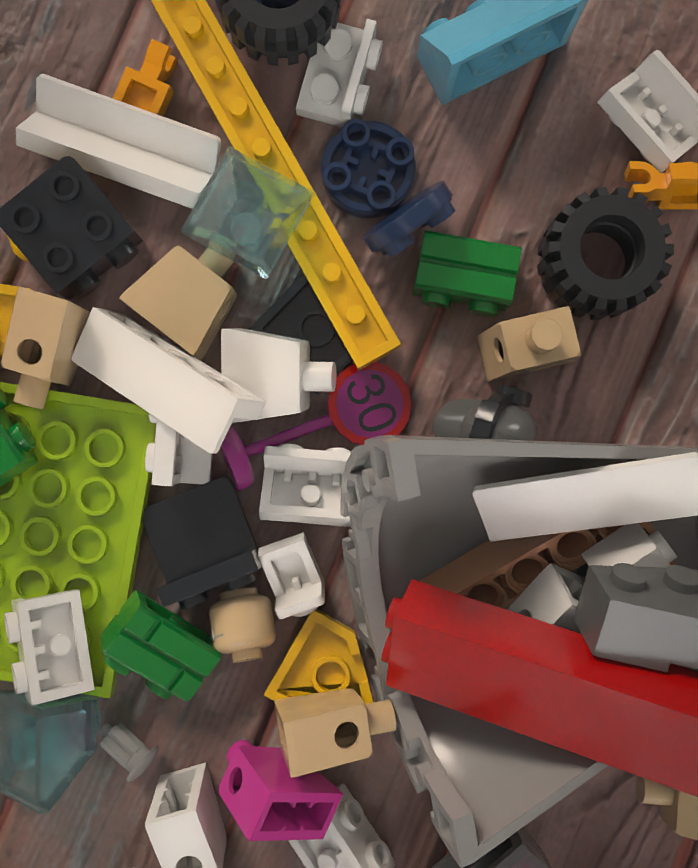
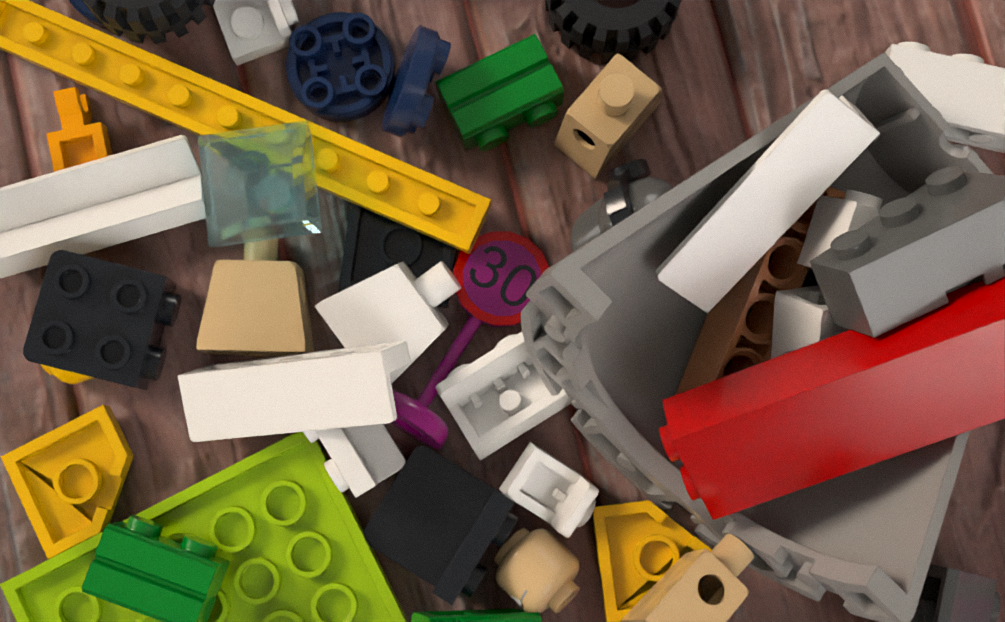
camera: 35 degrees left, 5 degrees down
(42, 344) = (141, 427): tan torso -> none

